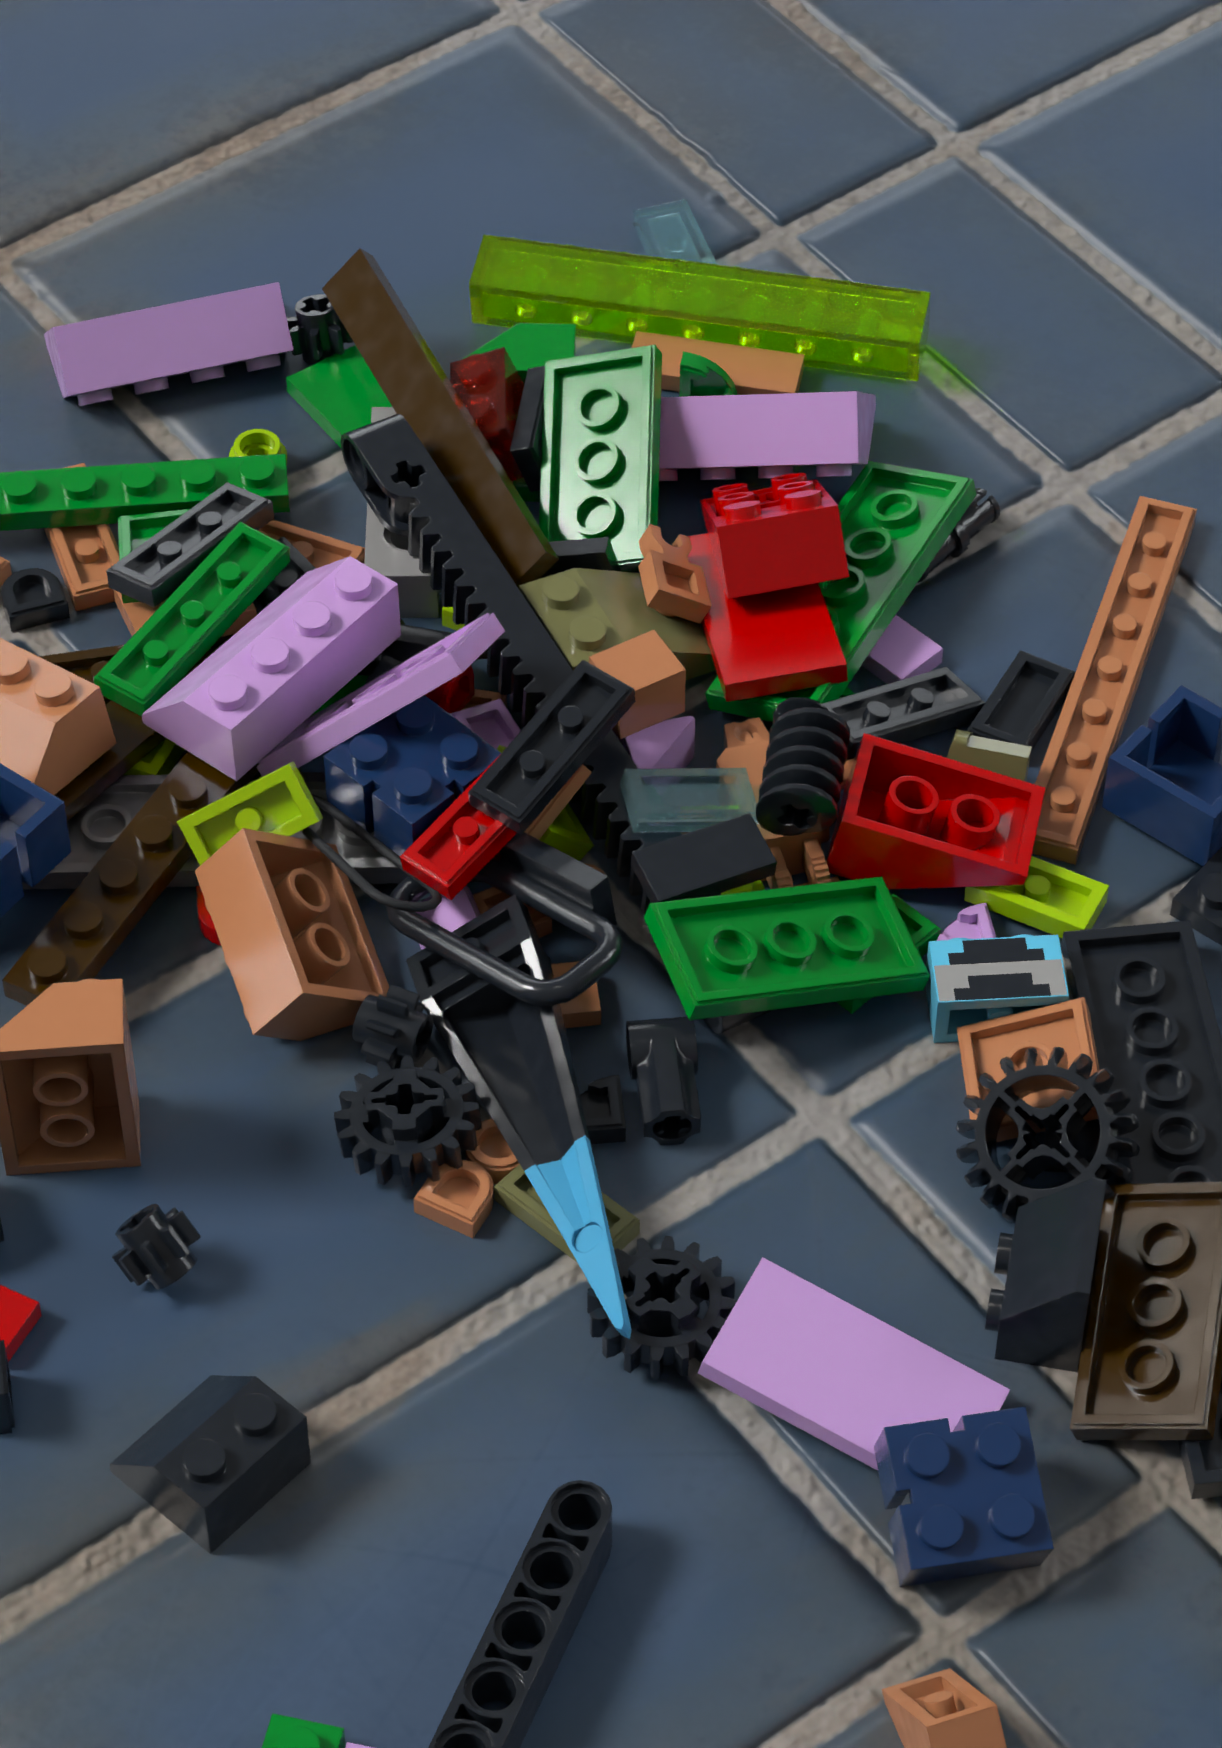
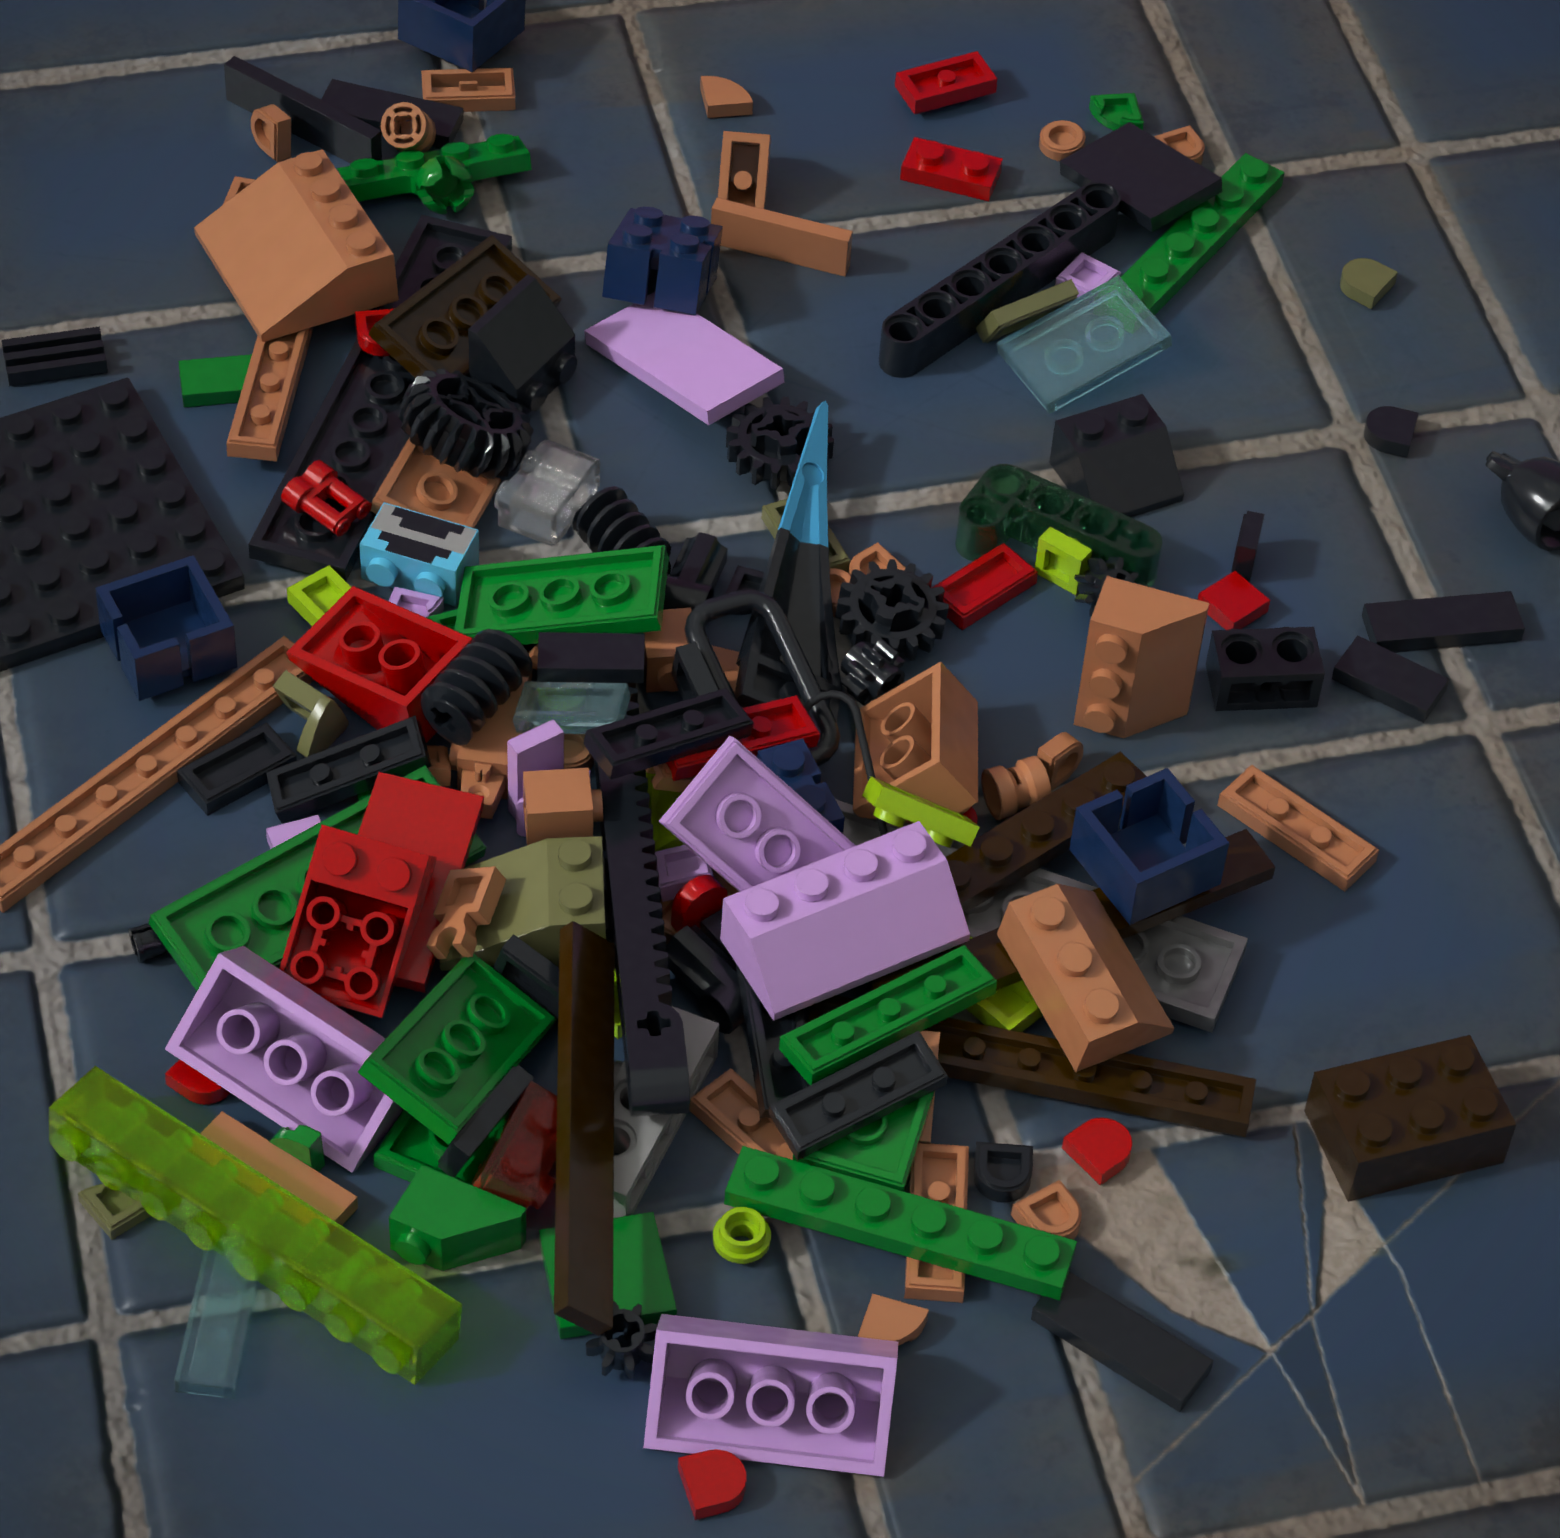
camera: 160 degrees left, 0 degrees up
(86, 437) = (893, 1320): none -> nougat tile
(141, 1004) = (1060, 757): none -> nougat tile
(155, 1315) = (1024, 506): none -> clear green beam
(169, 960) = (1014, 787): none -> nougat wheel
(190, 278) = (712, 1481): none -> red tile
(226, 1273) = (1061, 559): none -> lime plate
(318, 1229) = (986, 585): none -> red tile
(327, 1631) = (1084, 344): none -> clear light blue tile
(429, 1659) = (1025, 311): none -> olive tile
(639, 981) = (661, 648): none -> nougat brick
(697, 732) = (533, 751): none -> lavender tile
(774, 1091) = (613, 523): none -> black piece
(838, 1649) = (783, 237): none -> nougat tile
(904, 1126) = (547, 492): none -> clear brick
(1163, 988) = (318, 483): none -> red piece

